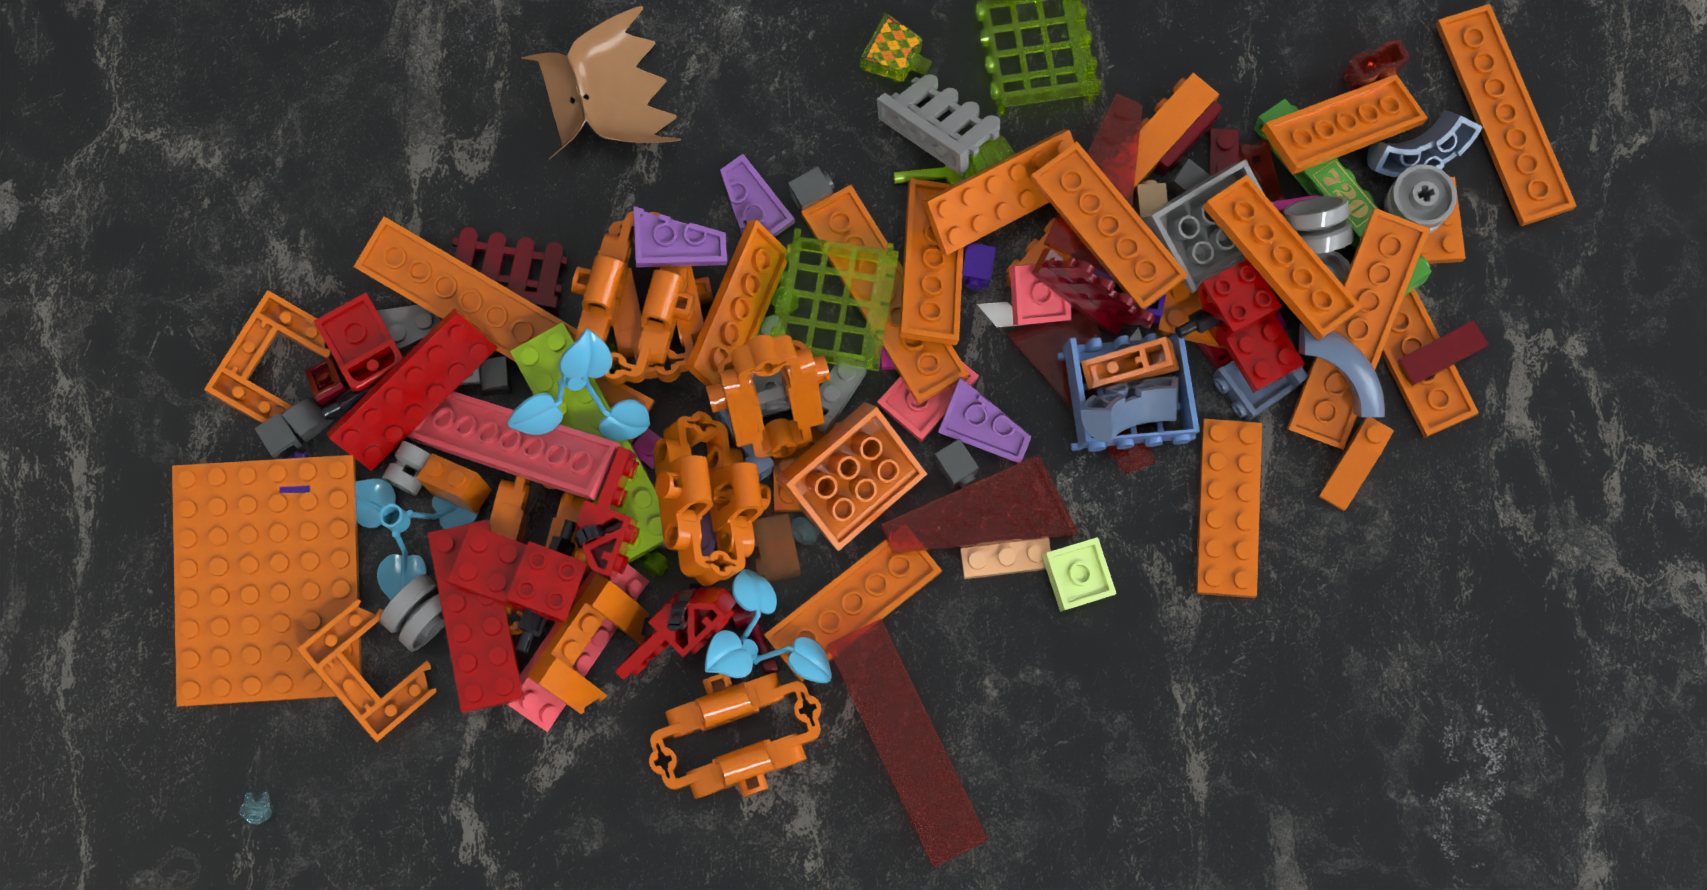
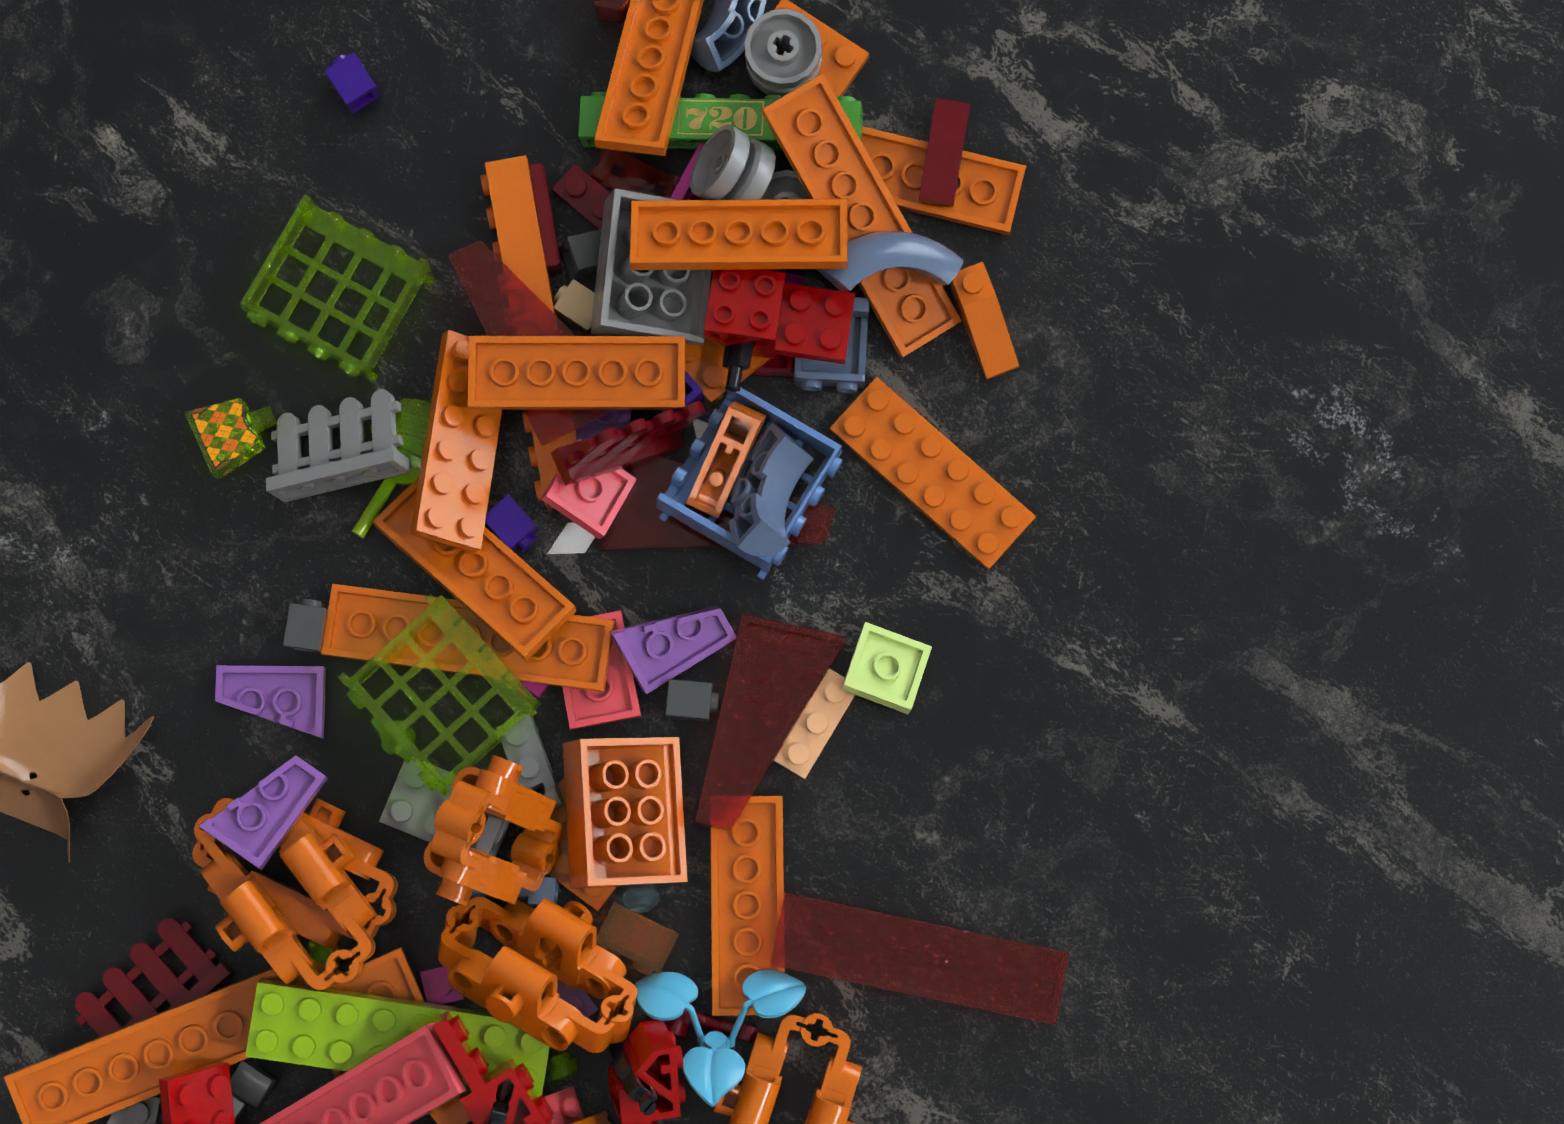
camera: 45 degrees left, 5 degrees up
(583, 359) = (321, 1007): medium azure plant -> none
(739, 301) = (371, 791): orange plate -> none

